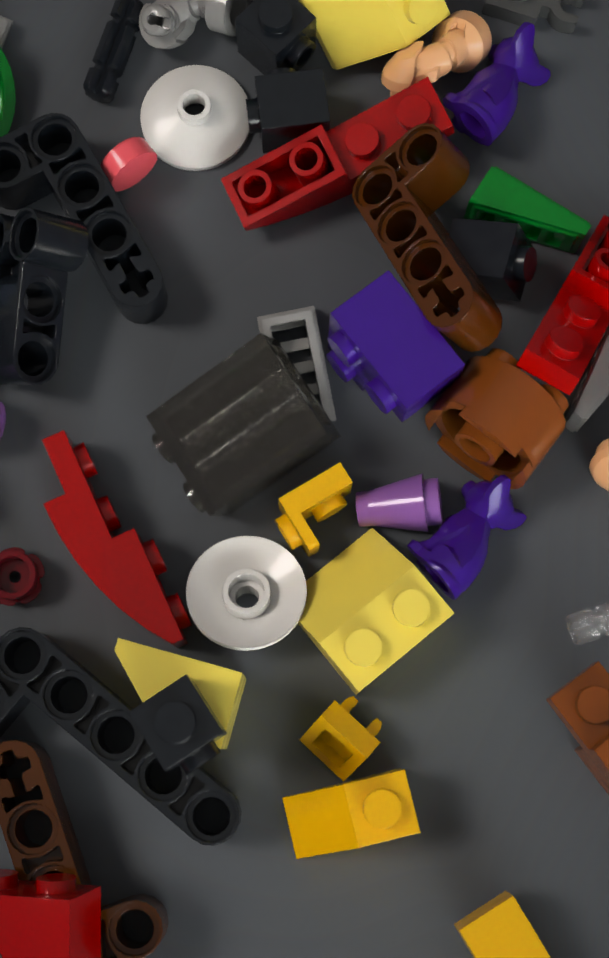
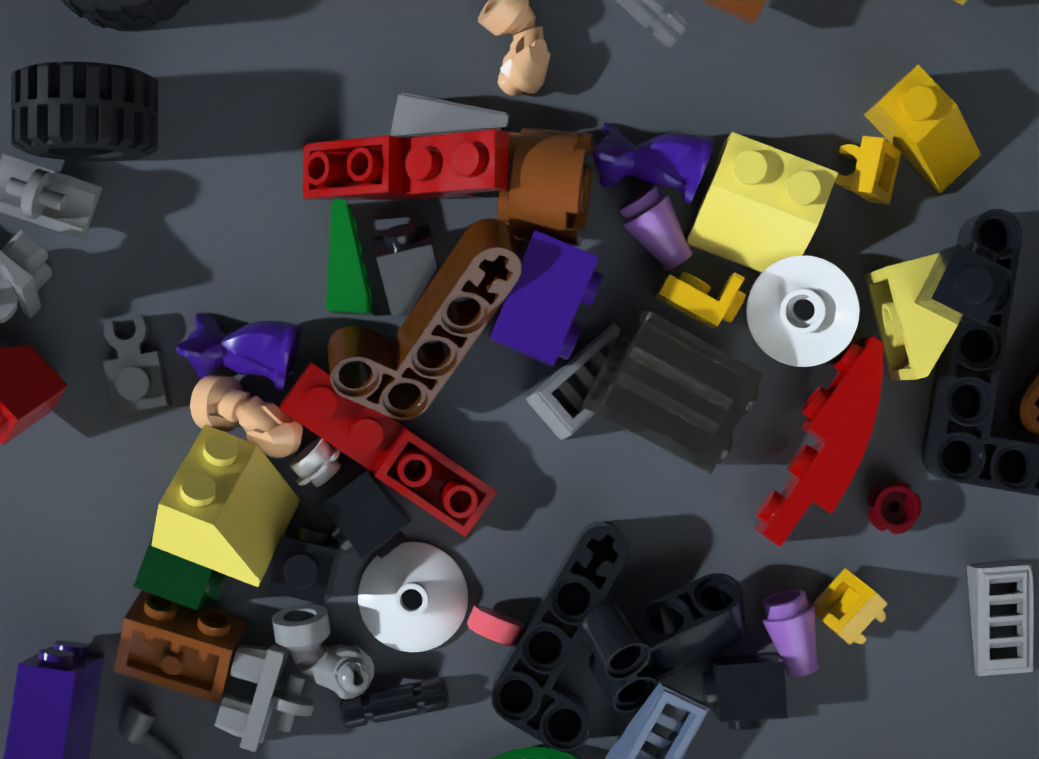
camera: 115 degrees left, 10 degrees up
(359, 92) = (316, 463): none -> white plate

